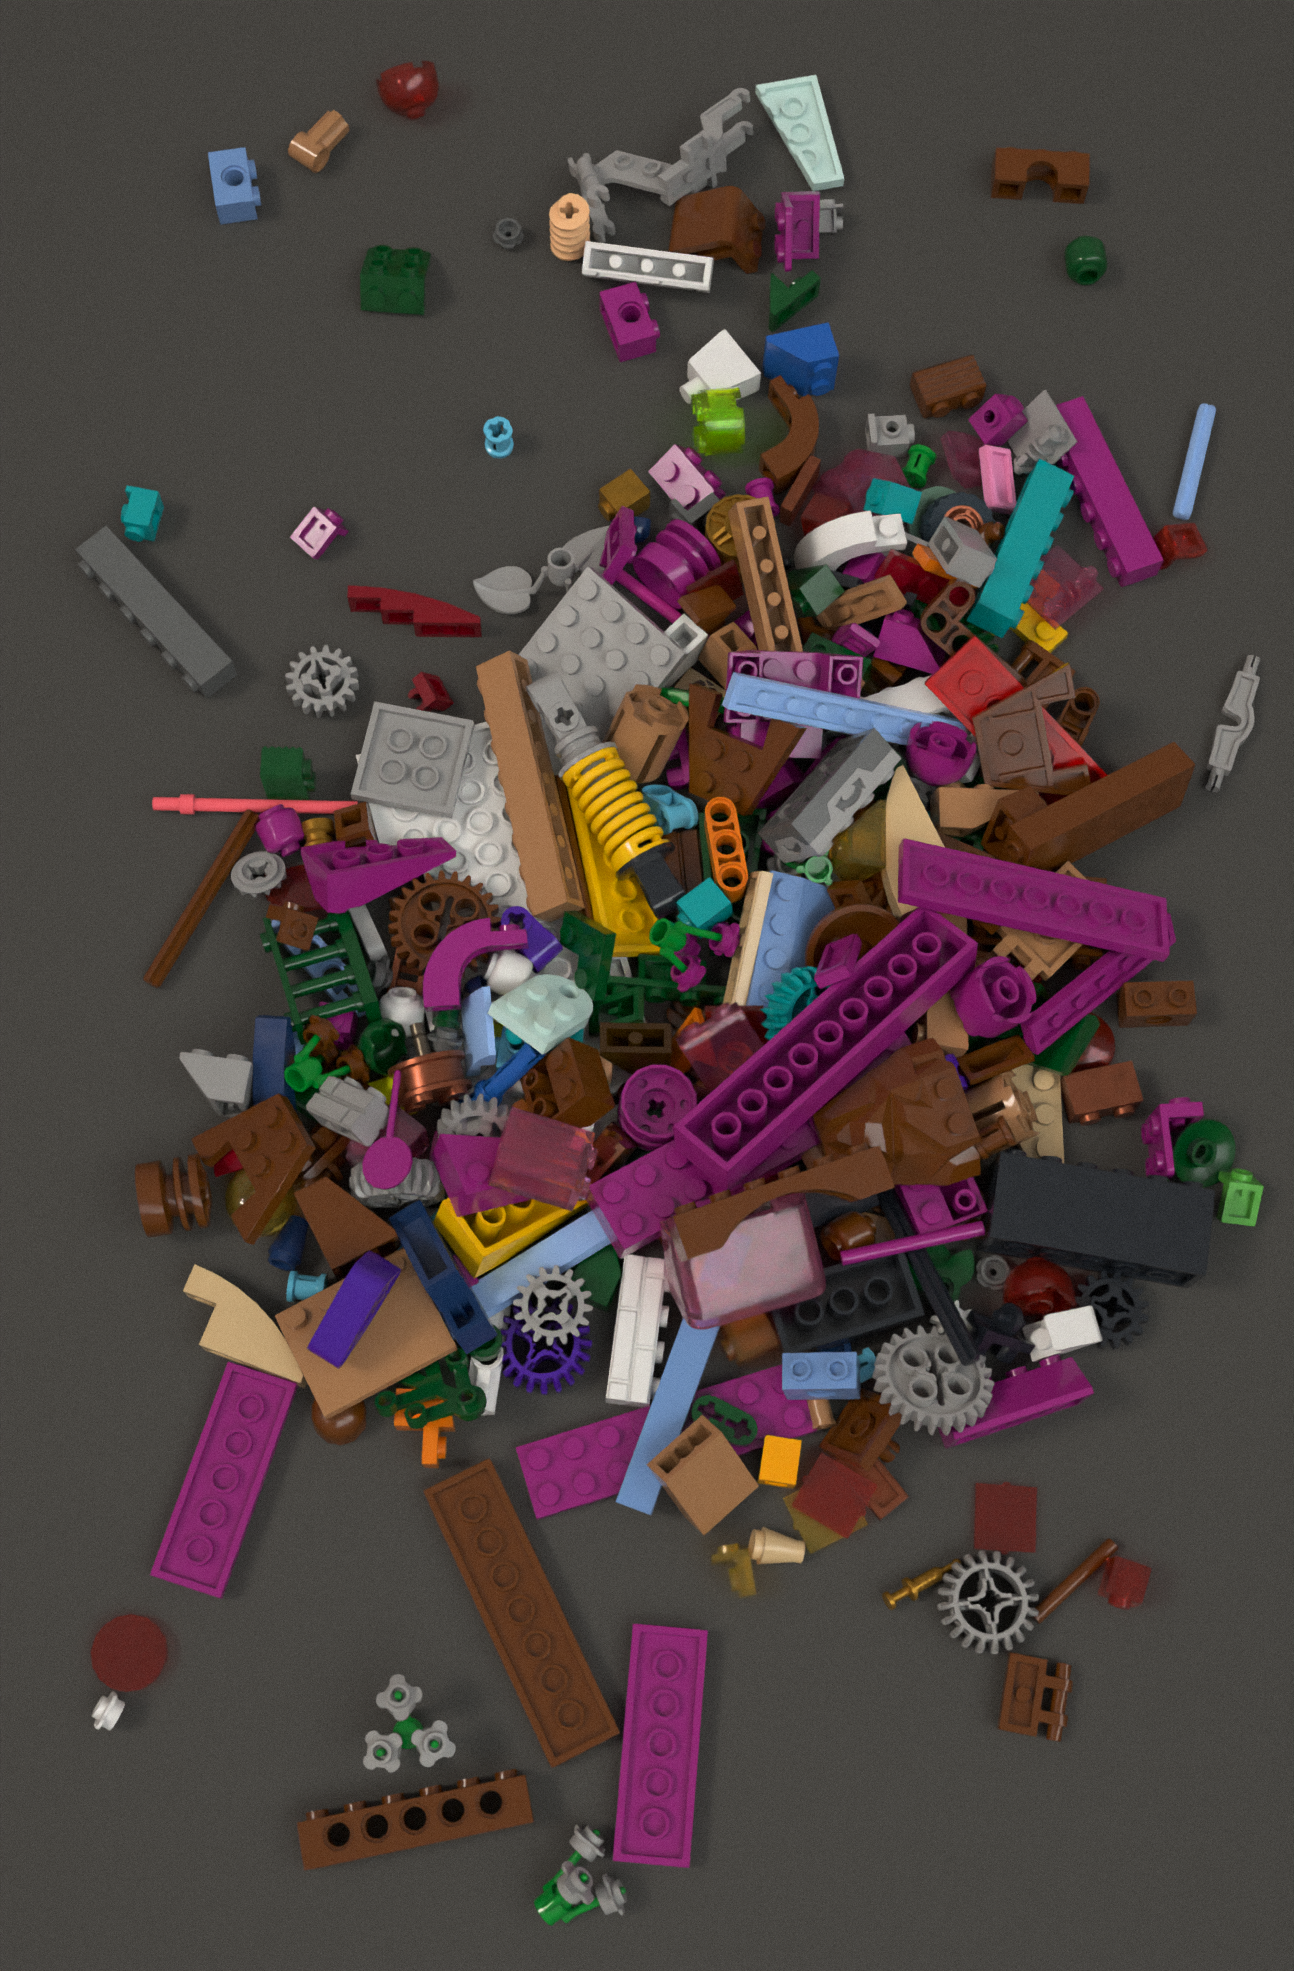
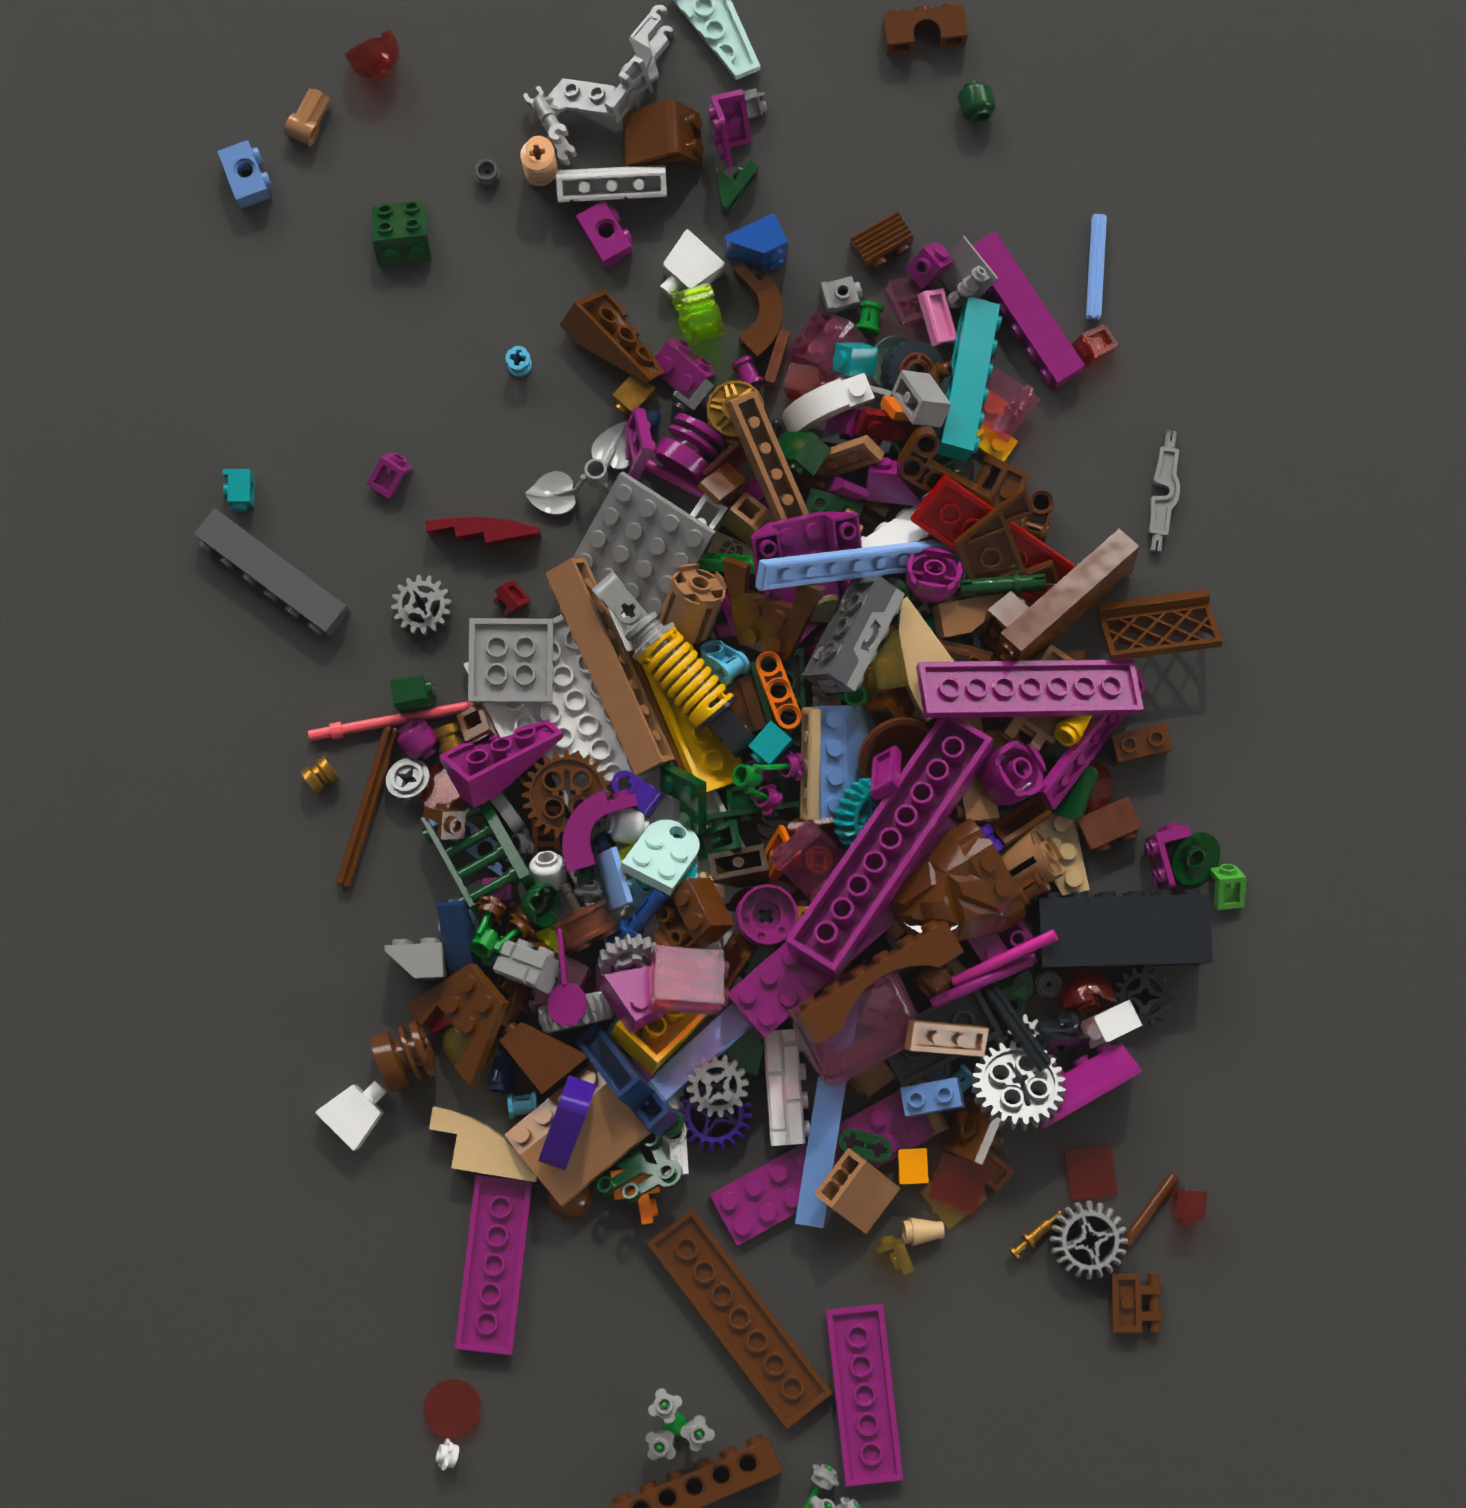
camera: 10 degrees left, 10 degrees up
(95, 1256) = (354, 1113): none -> white torso
(162, 846) = (326, 772): none -> pearl gold wheel
(605, 419) = (601, 327): none -> reddish brown wedge
(799, 765) = (825, 609): none -> olive tile
(852, 1299) = (946, 1038): none -> medium nougat plate
(945, 1217) = (1004, 958): none -> dark pink bar
(1021, 778) = (1002, 585): none -> dark green pin
(1076, 961) = (1071, 729): none -> yellow cone
(1213, 854) = (1157, 611): none -> reddish brown fence

